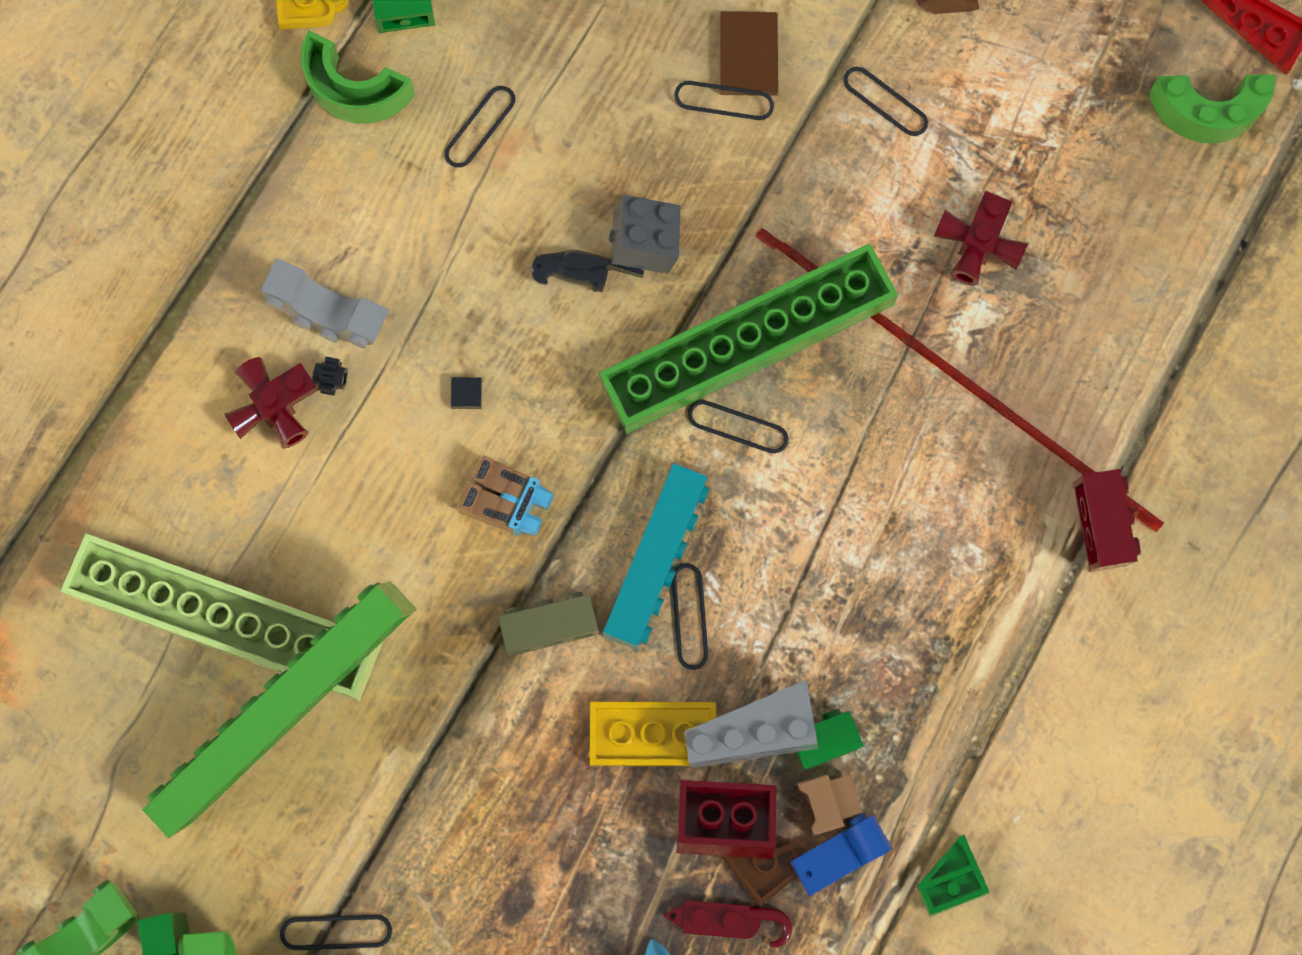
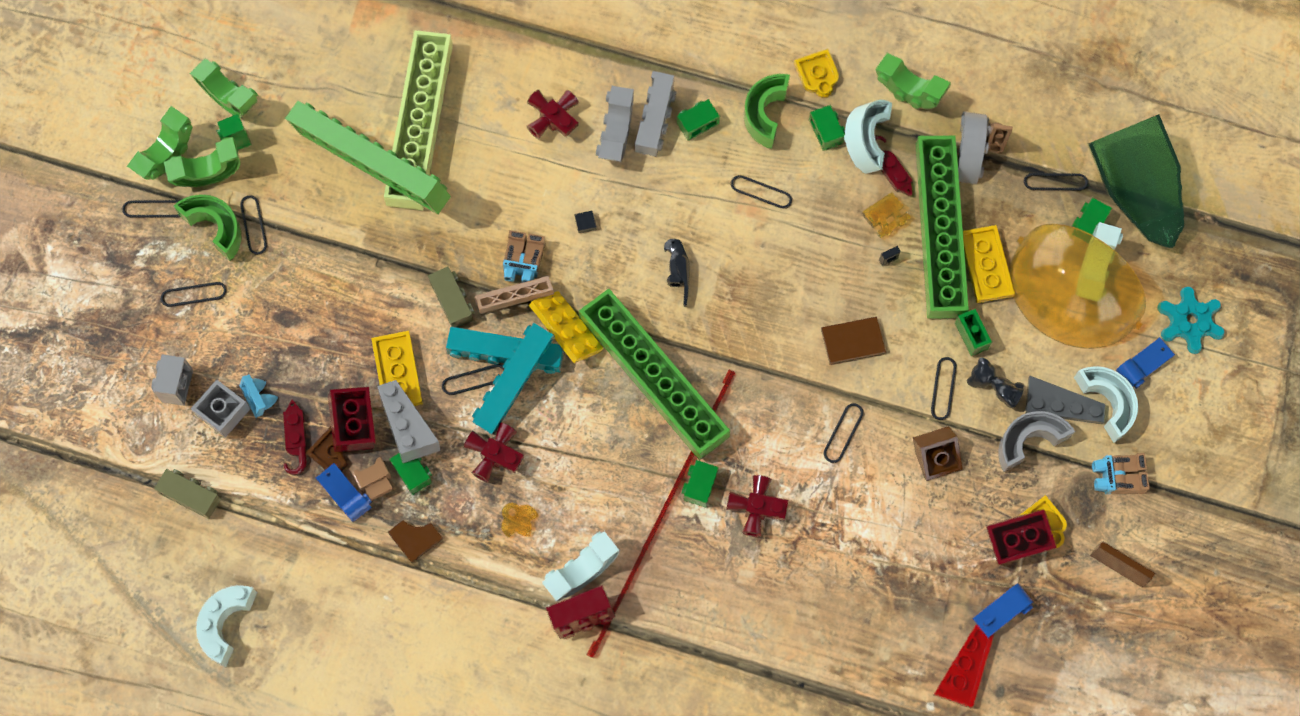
camera: 80 degrees right, 5 degrees down
(314, 245) = (655, 114): none -> light grey wedge
(330, 376) = (576, 142): black gear -> none
(339, 187) = (698, 119): none -> green brick
(569, 545) = (514, 294): none -> medium nougat fence
(640, 454) = (566, 327): none -> yellow plate
(645, 234) = (707, 299): dark grey brick -> none
(714, 548) = (513, 379): none -> teal brick
(725, 435) = (592, 382): black piece -> none
(727, 88) = (822, 330): black piece -> none
(824, 603) = (494, 452): none -> dark red brick
(928, 312) = (700, 483): none -> green brick
(935, 588) = (520, 521): none -> clear yellow plate
(936, 756) = (414, 540): none -> reddish brown tile
(952, 880) = (340, 562): green wing -> none
(1032, 508) = (584, 569): none -> light aqua brick
(1210, 120) = (883, 651): bright green brick -> none

